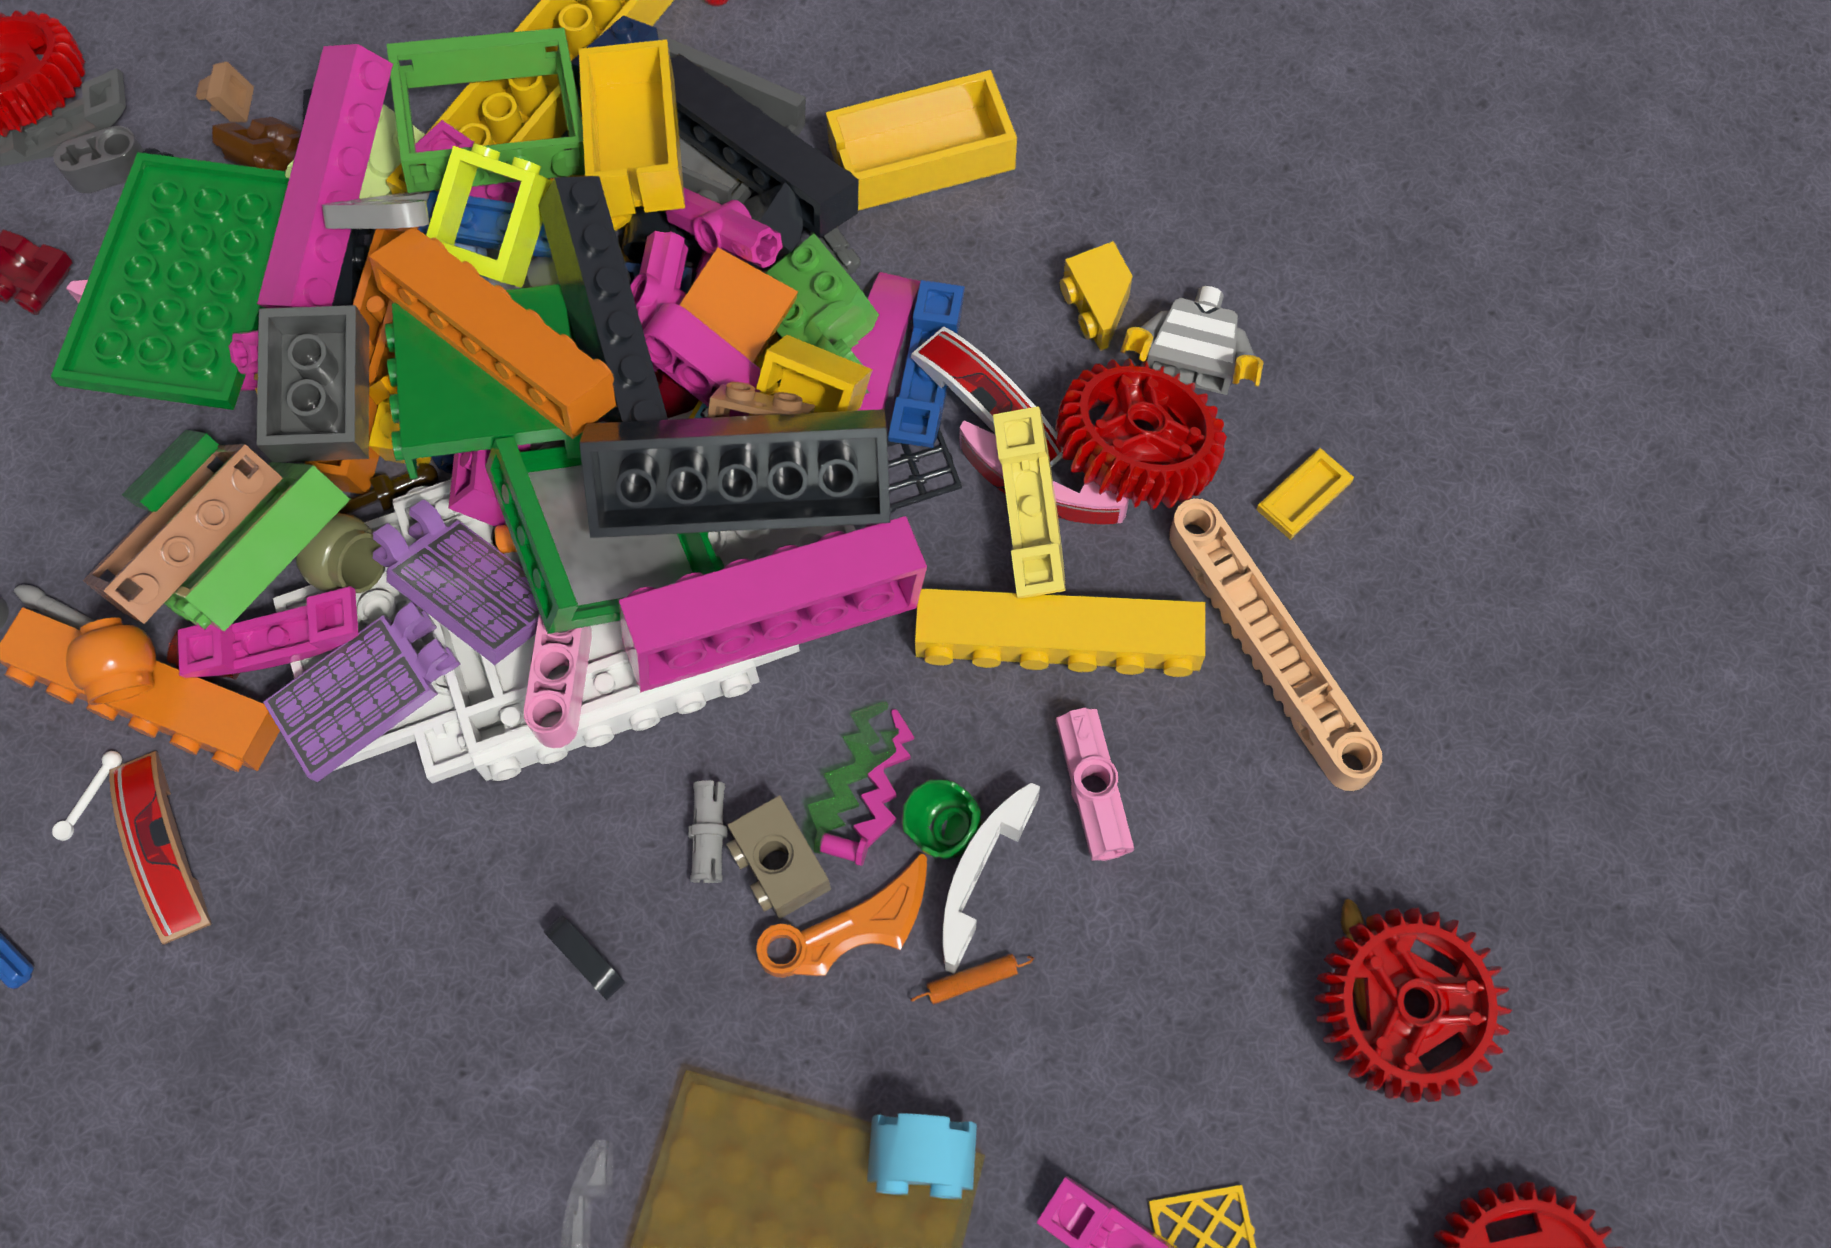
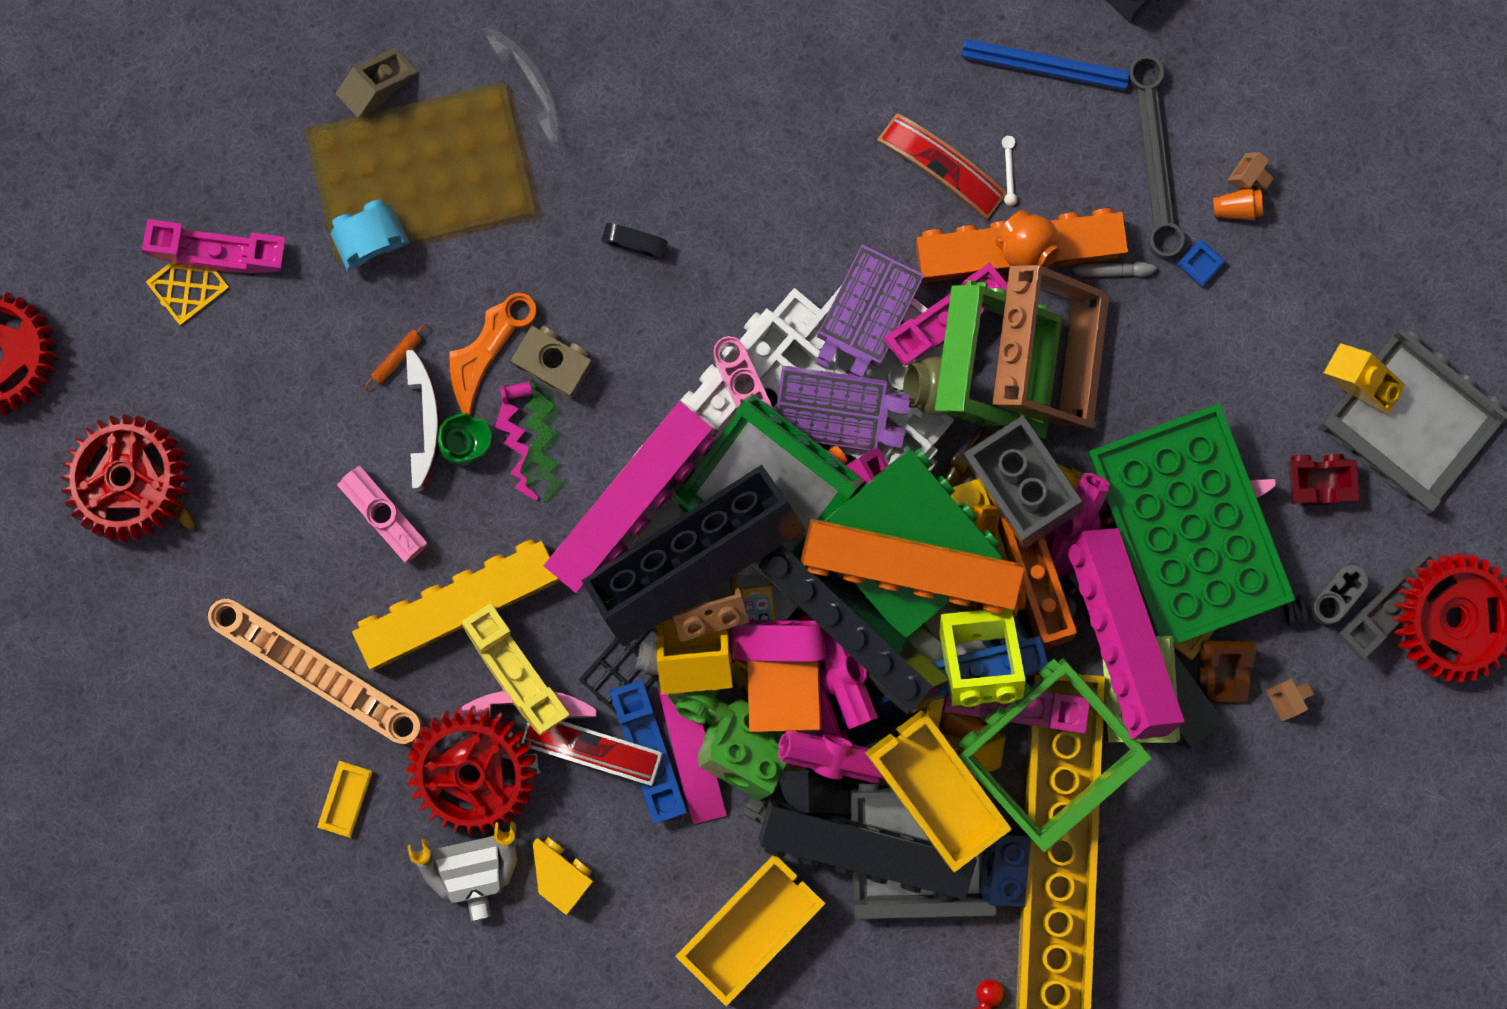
camera: 150 degrees right, 15 degrees up
(170, 470) = (1105, 393): green tile -> none
(378, 212) = (1076, 611): light grey beam -> none
(707, 832) = (606, 355): light grey pin -> none

